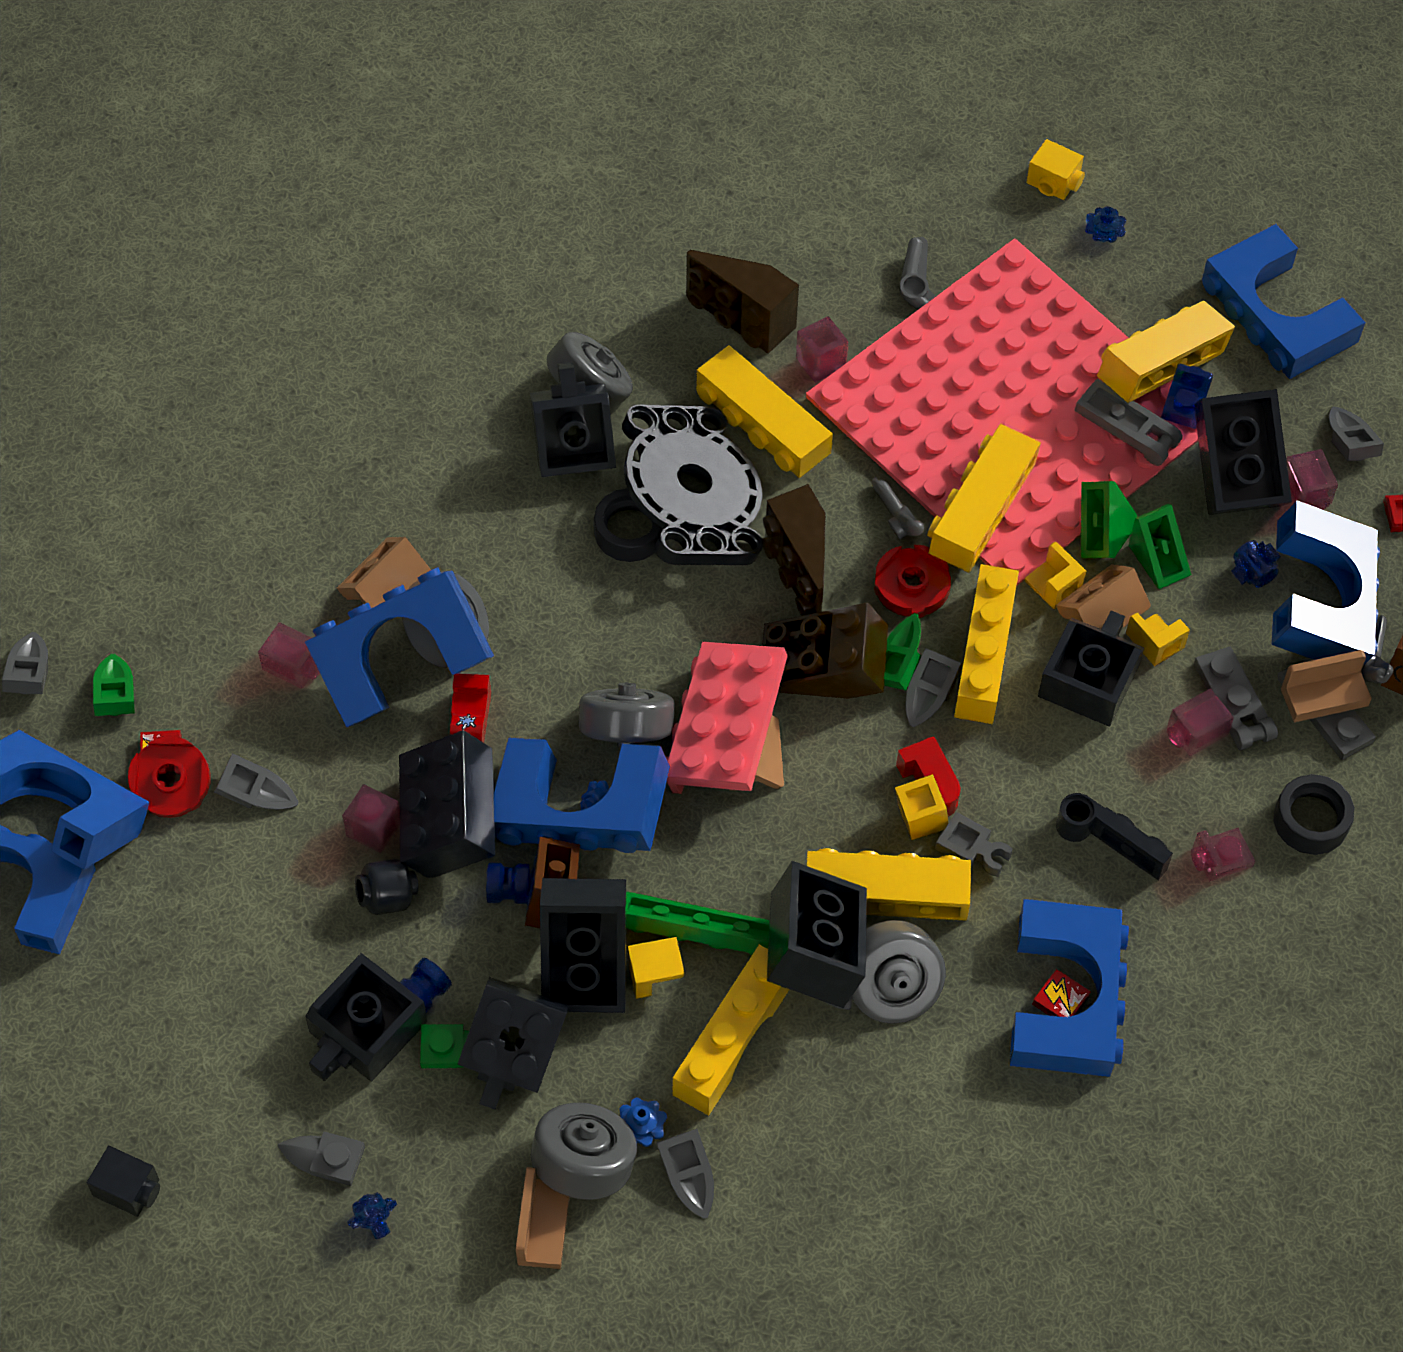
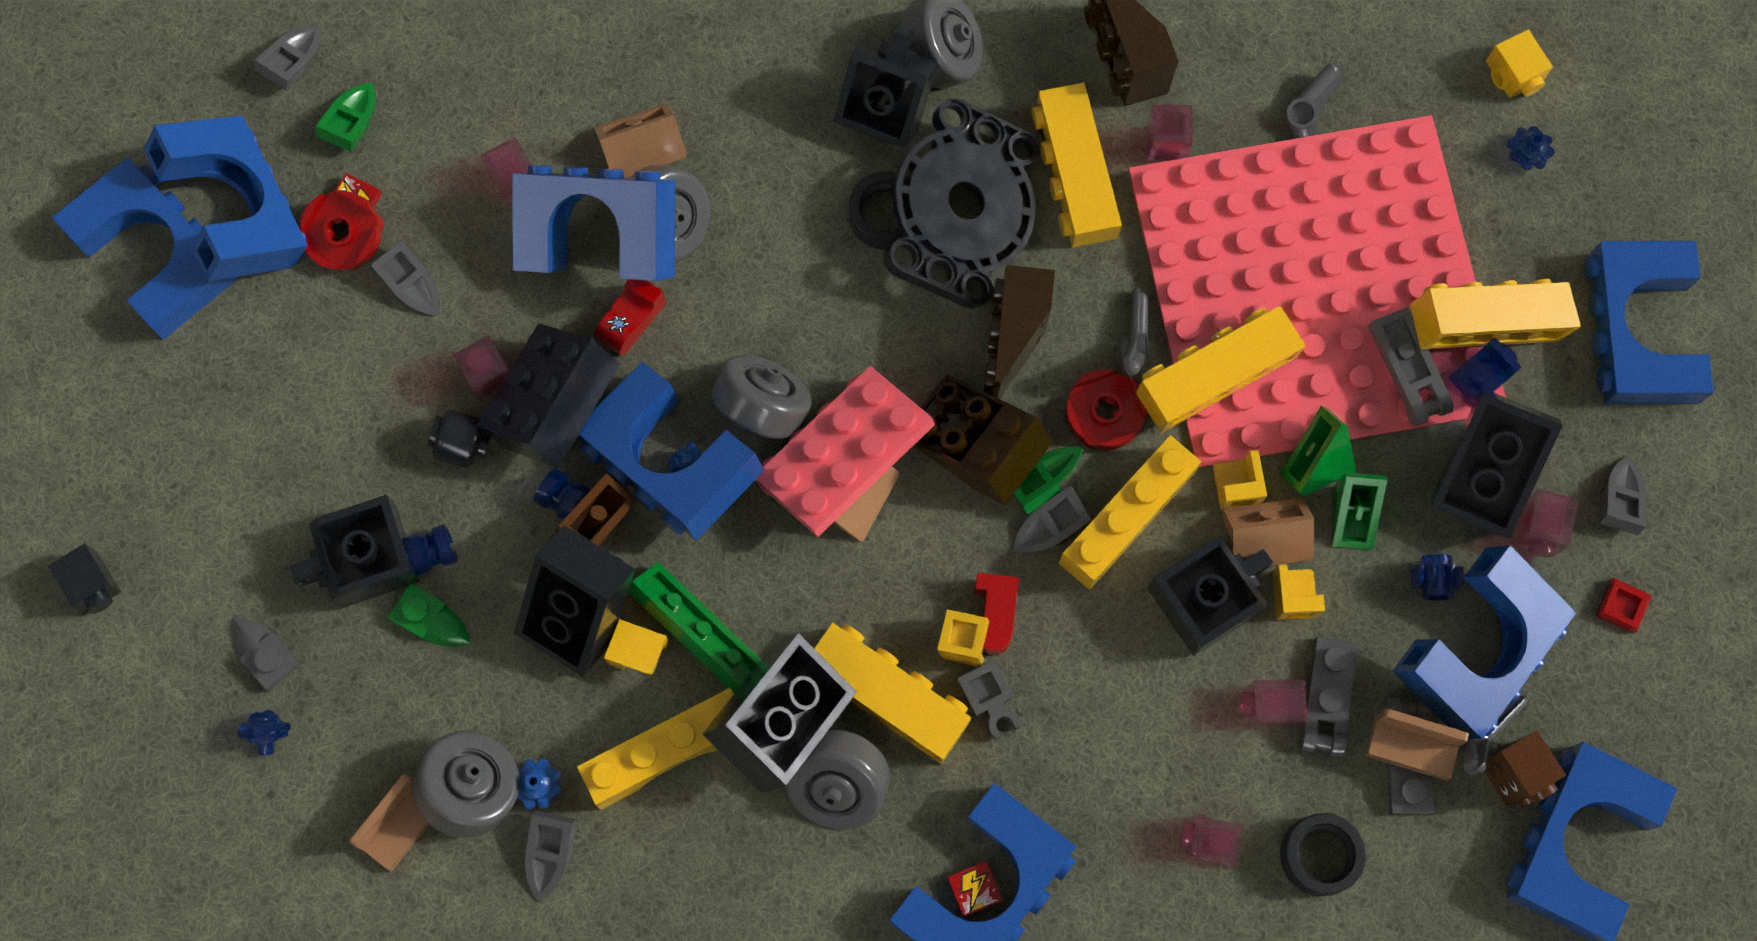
camera: 30 degrees right, 15 degrees up
(509, 1063) = (467, 645): black hinge -> none
(1115, 831) = (1128, 763): black plate -> none

